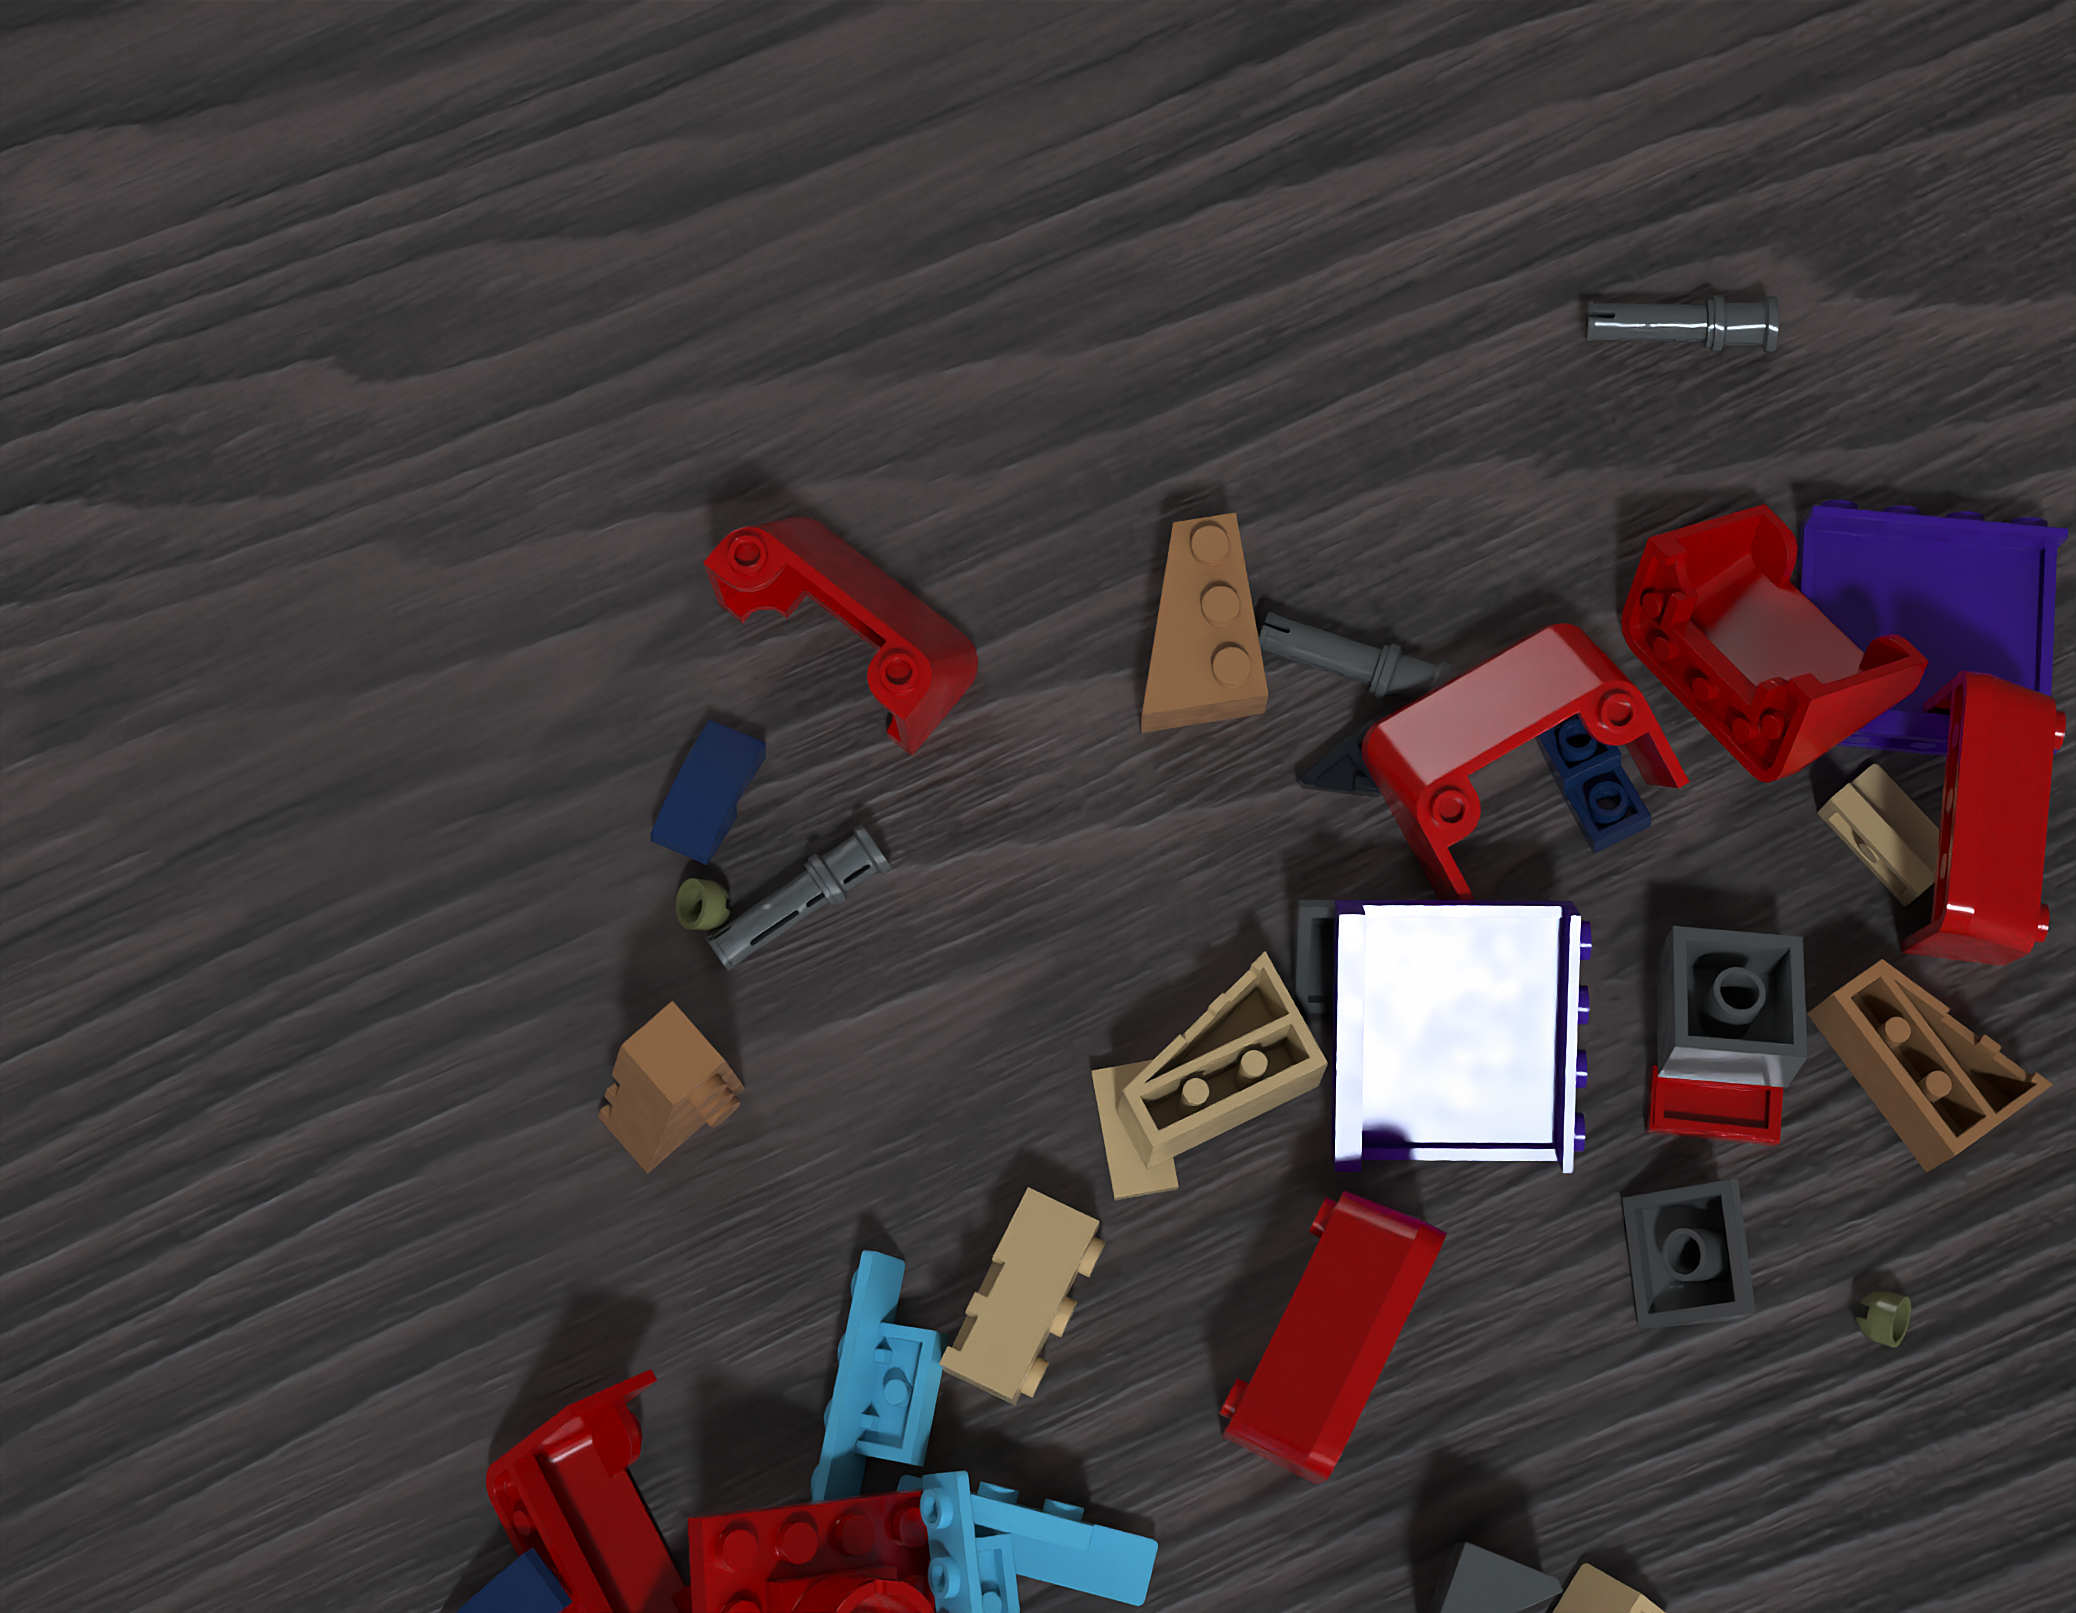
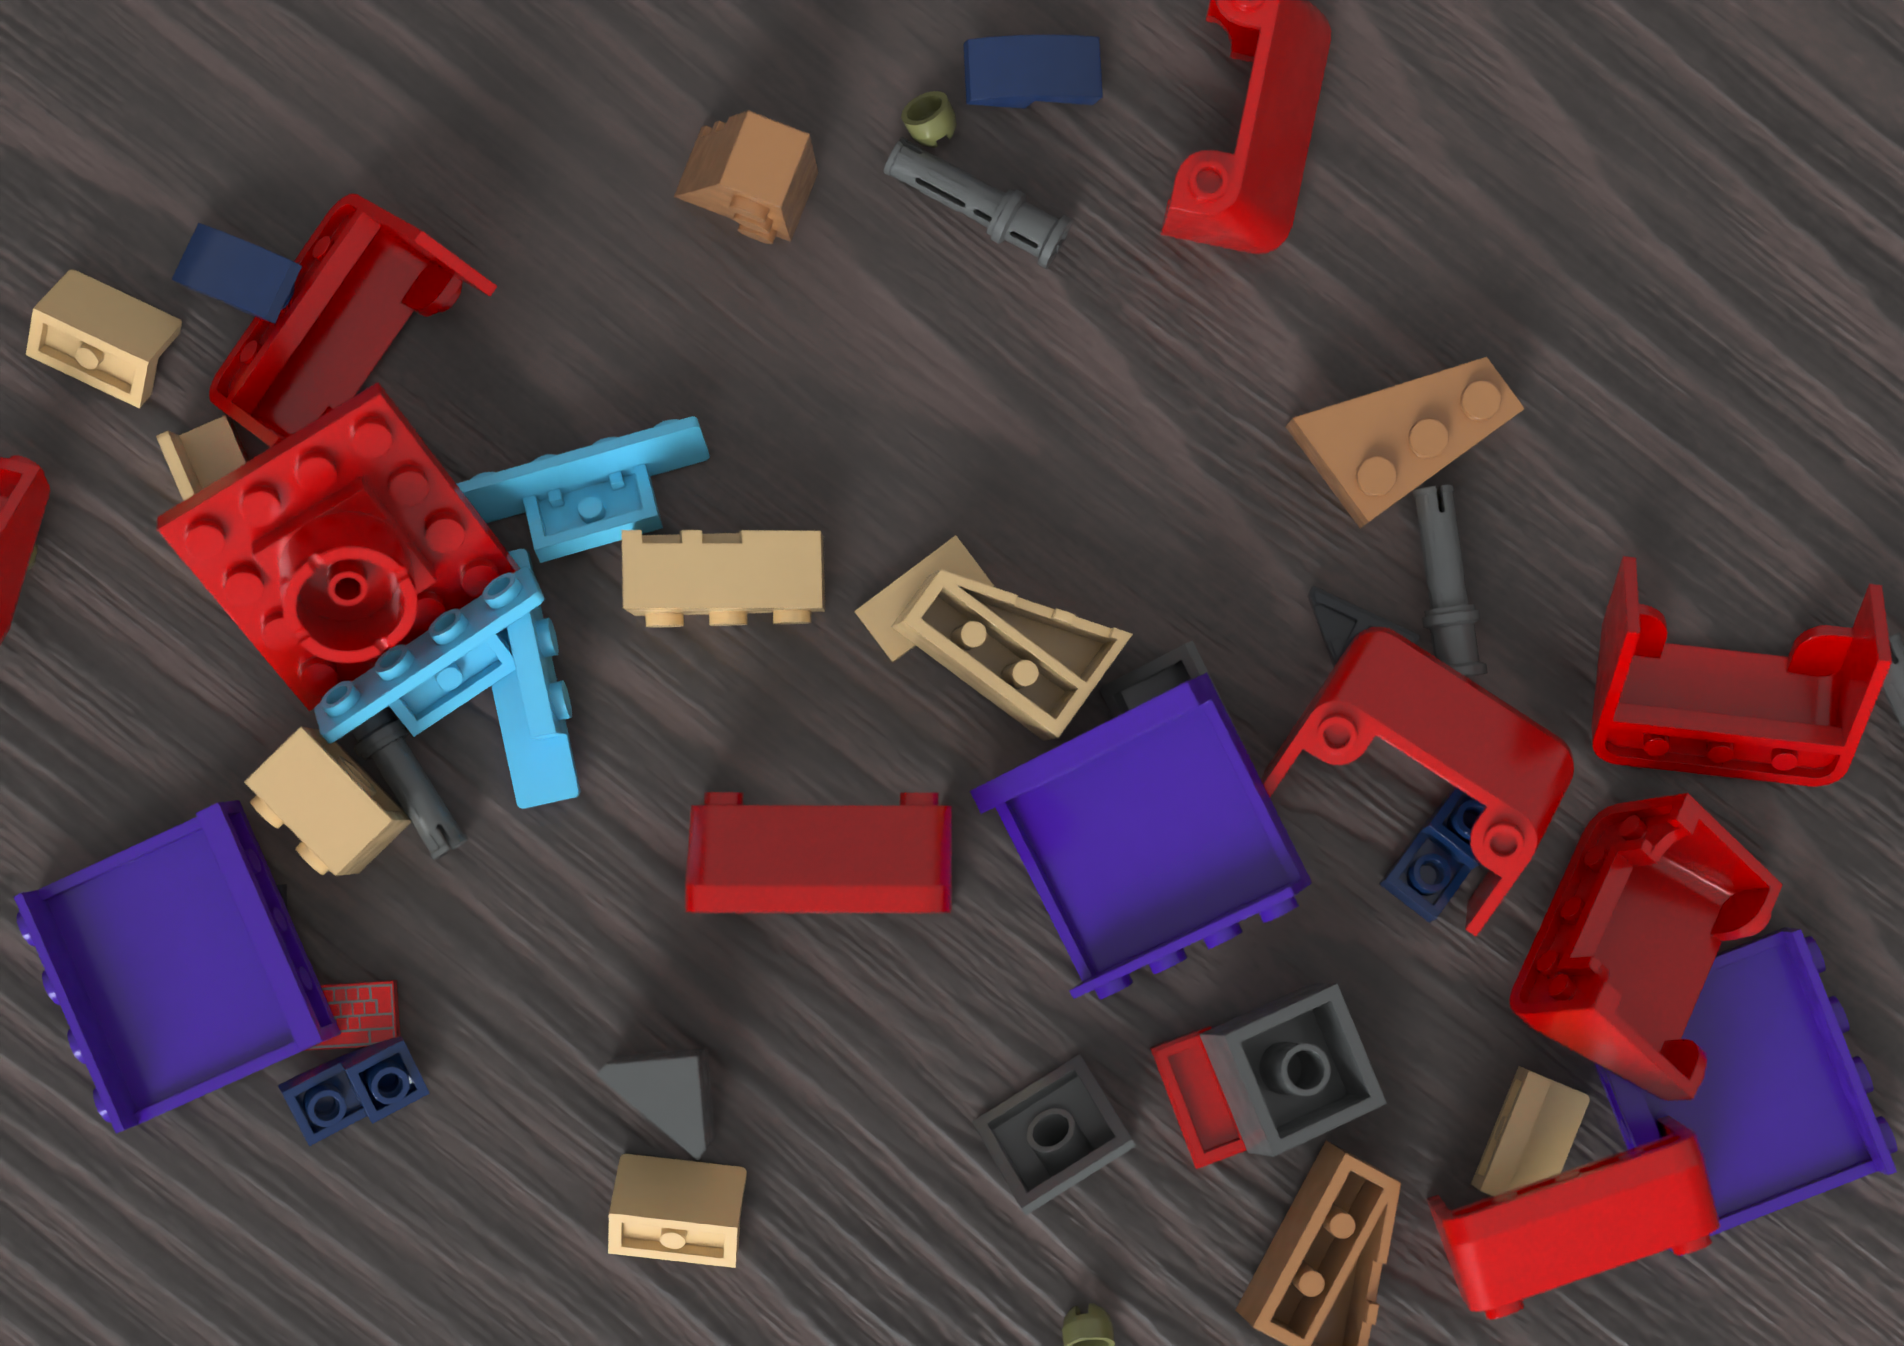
camera: 65 degrees right, 10 degrees up
(1589, 469) = (1735, 709): none -> red windscreen

